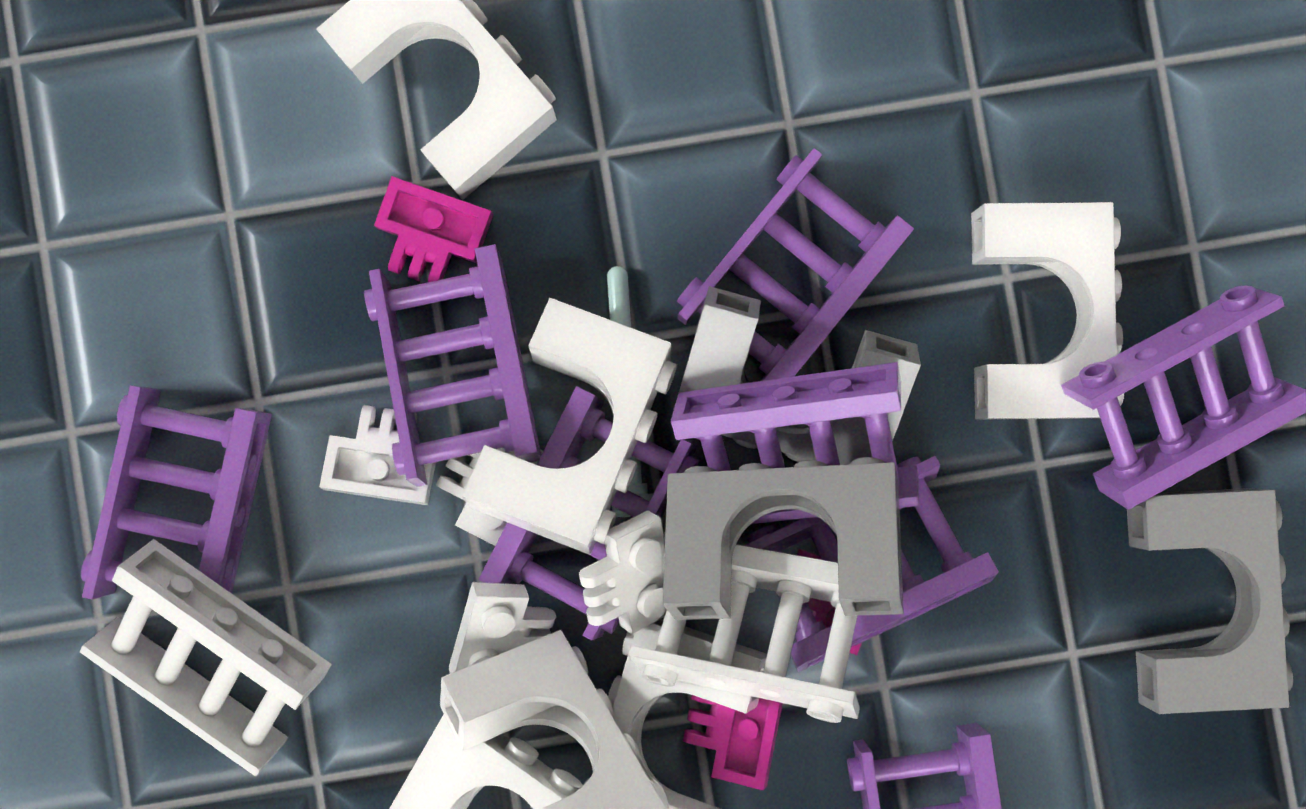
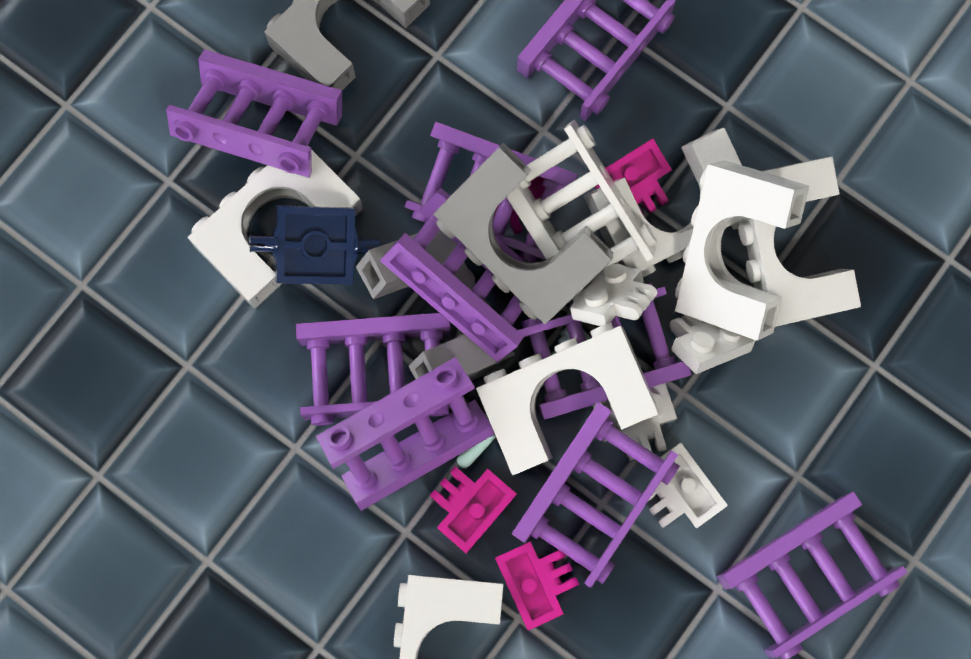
camera: 135 degrees left, 10 degrees down
(225, 627) = (845, 482): white fence -> none
(564, 237) = (471, 506): none -> dark pink hinge
(693, 229) = (420, 452): none -> medium lavender fence
(981, 321) = (314, 245): none -> dark blue plate

